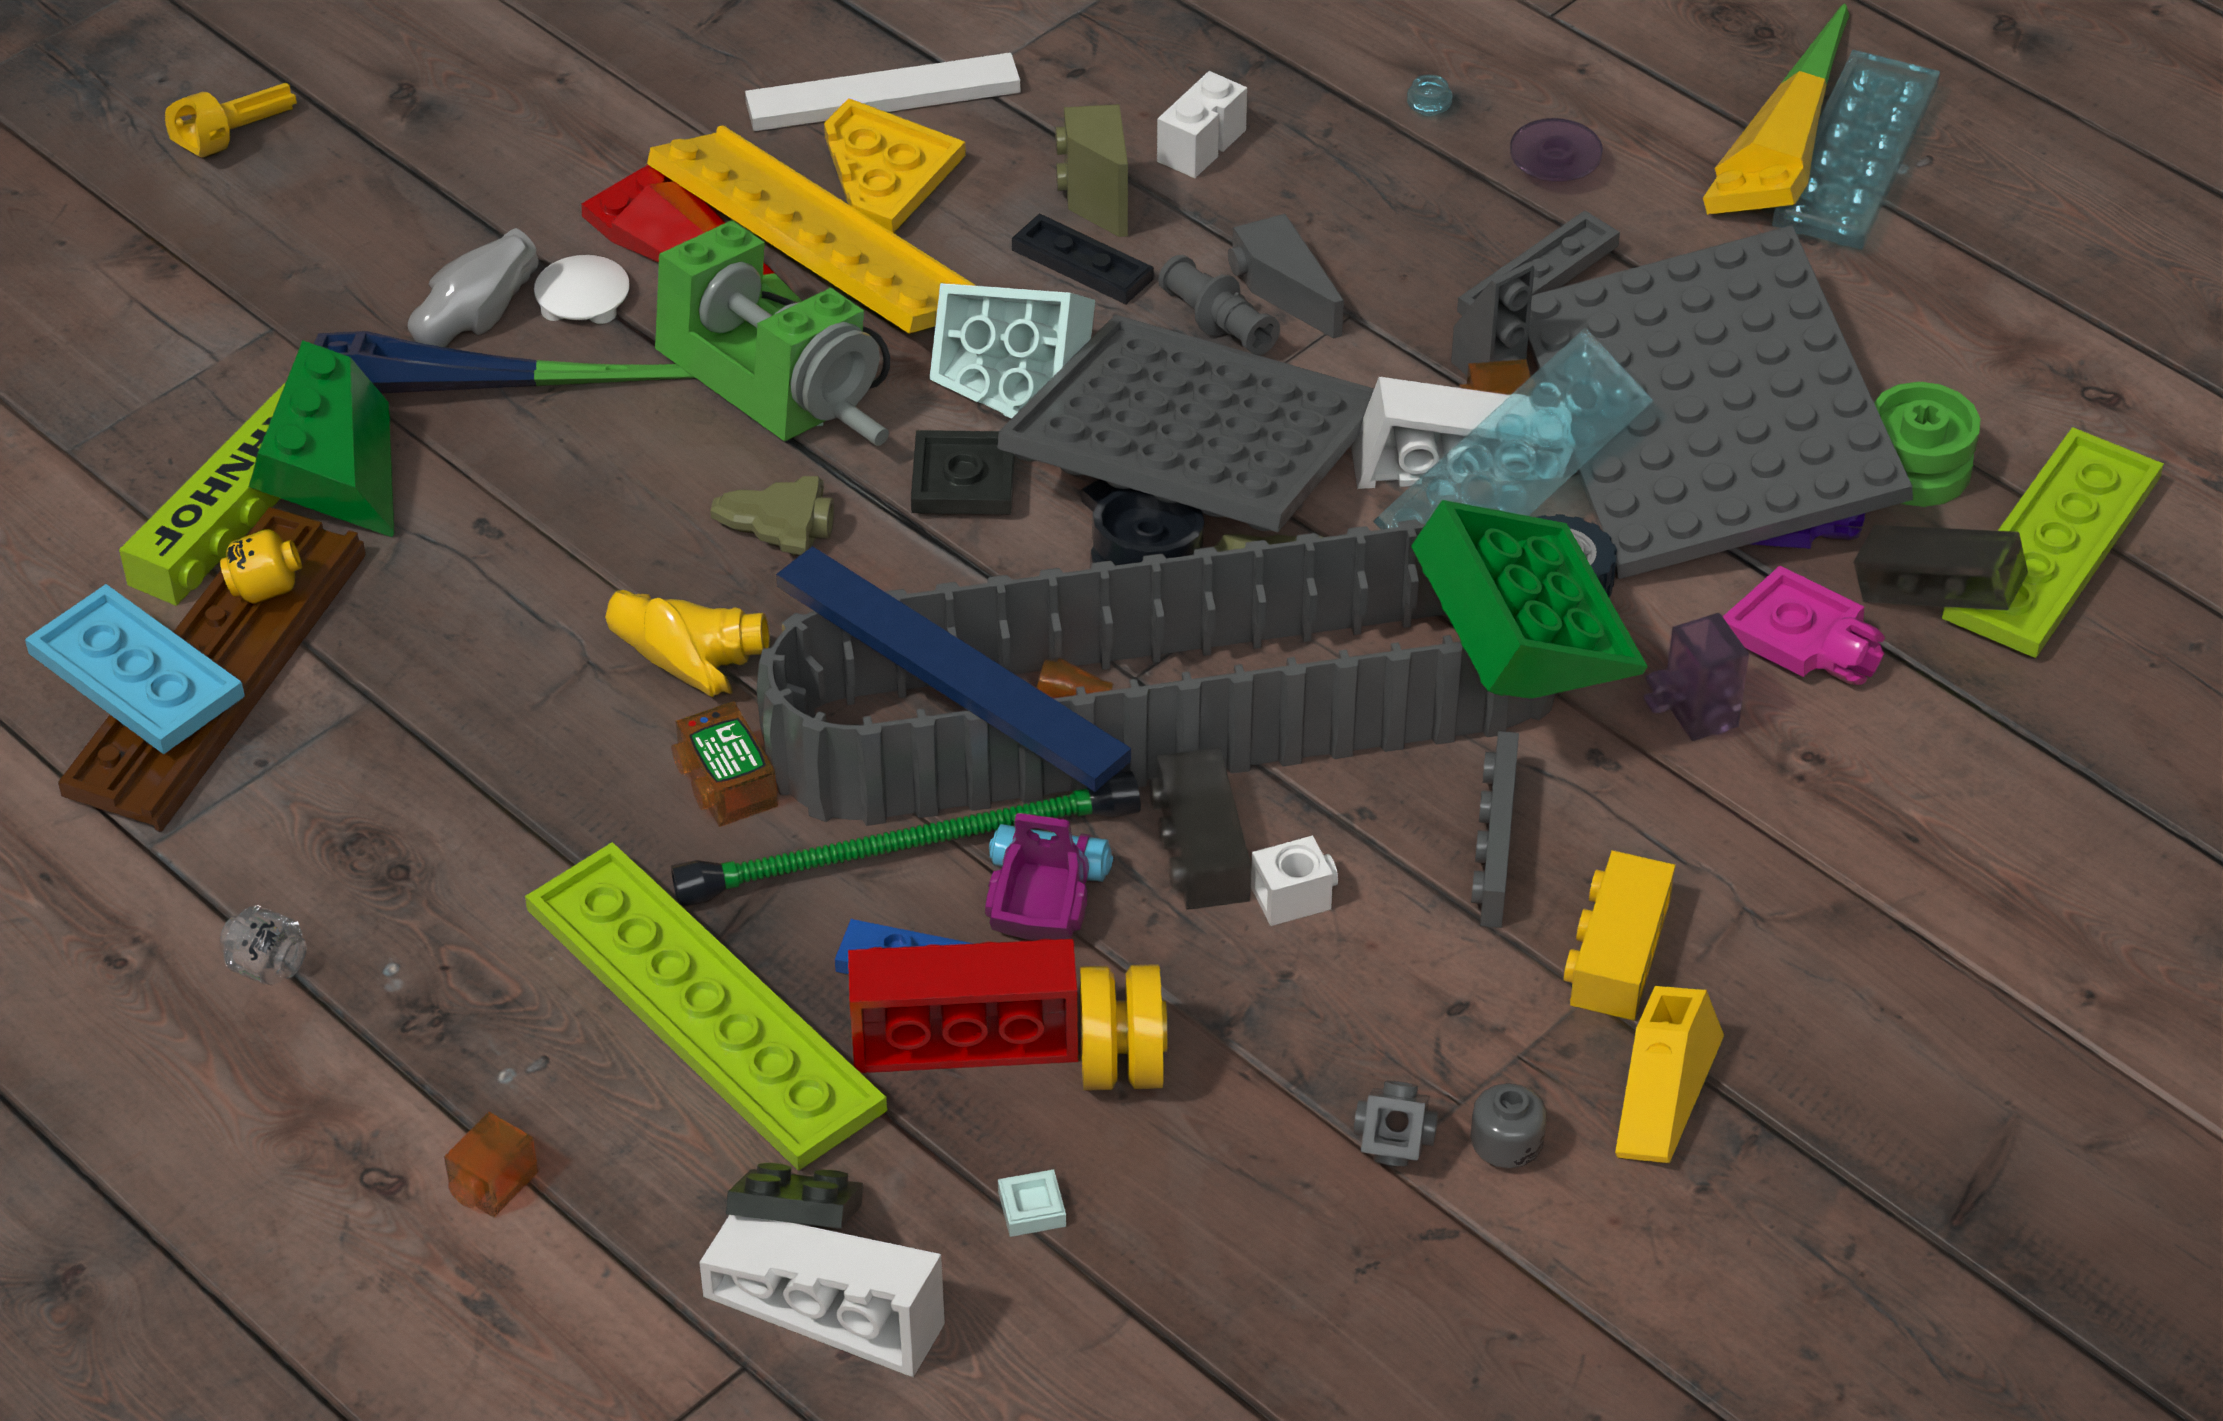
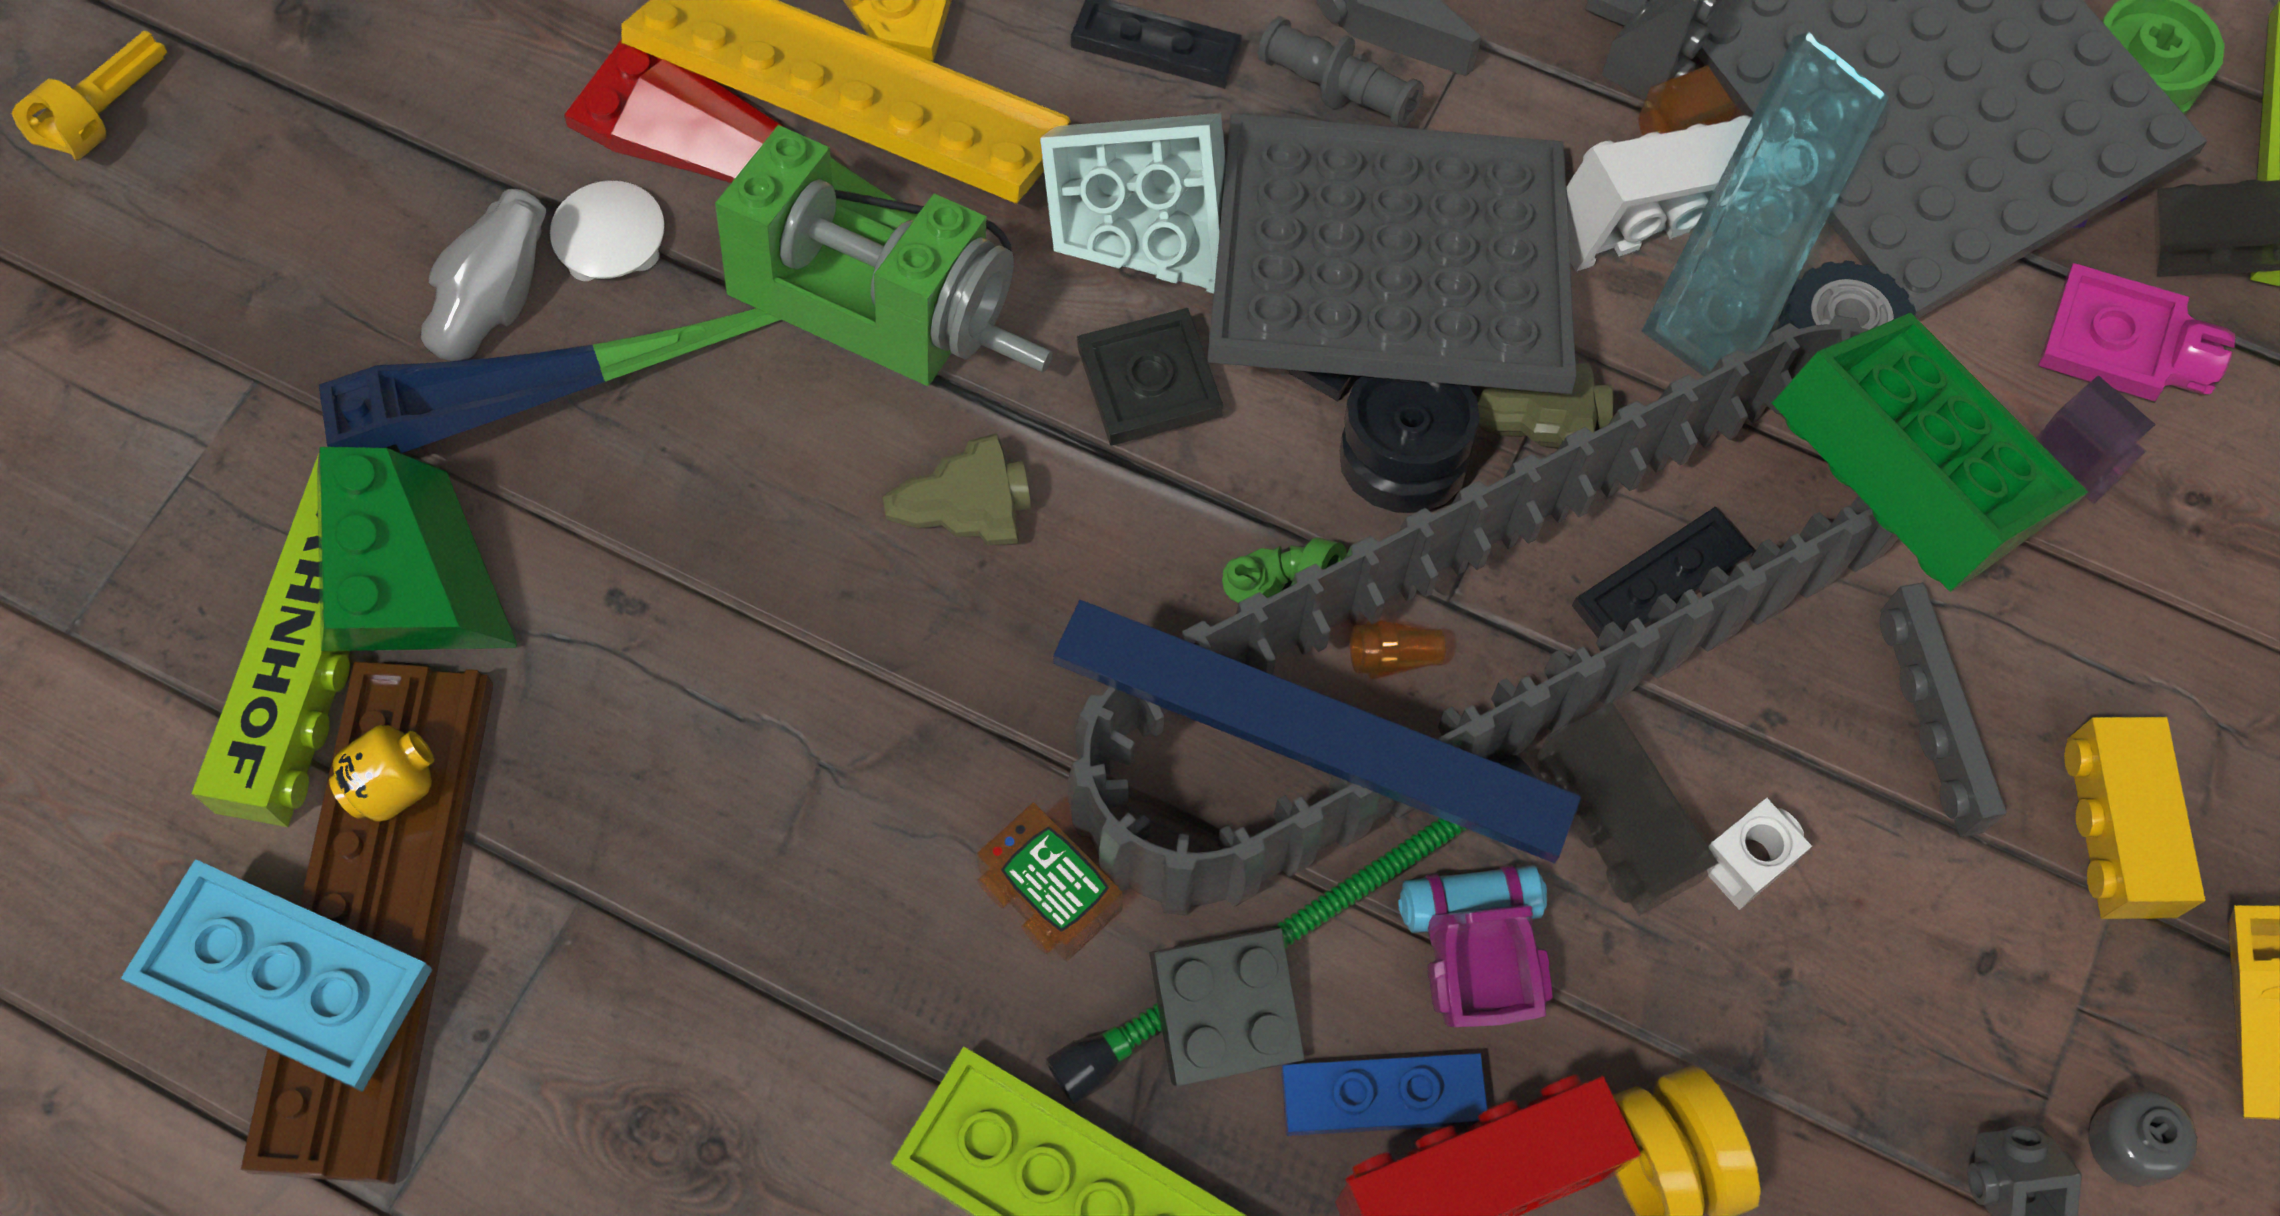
camera: 20 degrees left, 20 degrees up
(688, 637) = (932, 713): yellow animal -> none
(822, 866) = (1226, 1006): none -> pearl dark grey plate

